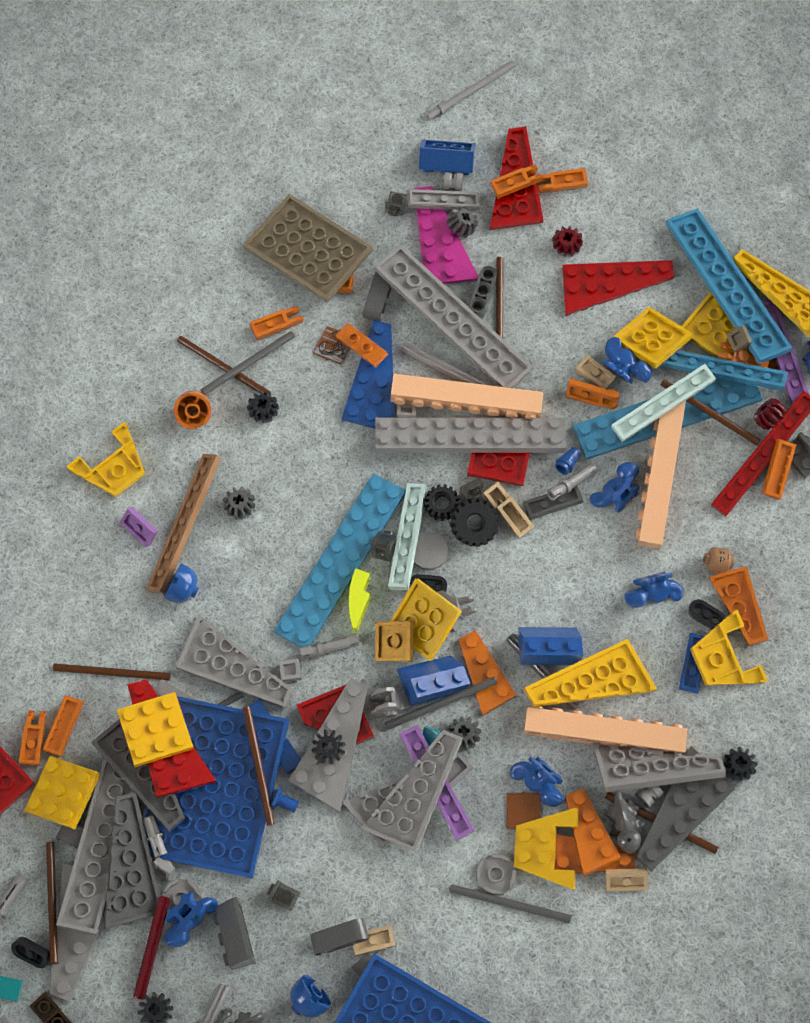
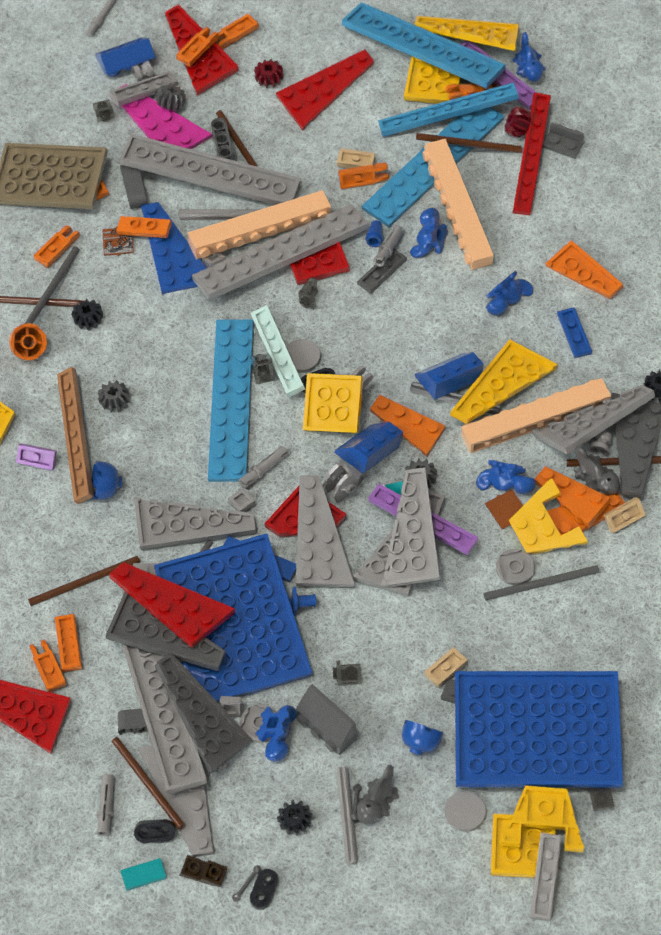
camera: 30 degrees left, 10 degrees down
(62, 792) = (102, 692): yellow plate -> none
(151, 947) = (259, 771): dark red axle -> none
(154, 729) = (157, 593): yellow plate -> none
(154, 836) = (208, 681): light grey axle -> none
(258, 766) = (264, 581): reddish brown piece -> none
(336, 744) = (312, 541): black gear -> none
(339, 936) = (416, 676): dark grey beam -> none
(358, 598) = (265, 418): neon yellow slope -> none
(394, 641) = (318, 433): pearl gold plate -> none
(440, 703) = (386, 462): dark grey piece -> none
(441, 492) = (289, 304): black tyre -> none
(471, 507) = (319, 321): black tyre -> none
(507, 509) = (347, 292): tan slope -> none
(624, 363) = (375, 139): blue animal -> none
(653, 337) = (386, 110): yellow plate -> none
(663, 402) = (429, 147): light aqua plate -> none
(707, 614) = (562, 291): black plate -> none
(717, 659) = (593, 318): yellow wing -> none
(718, 560) = (545, 247): medium nougat head -> none
(739, 338) = (459, 75): dark tan plate -> none
(778, 469) = (550, 159): orange plate -> none

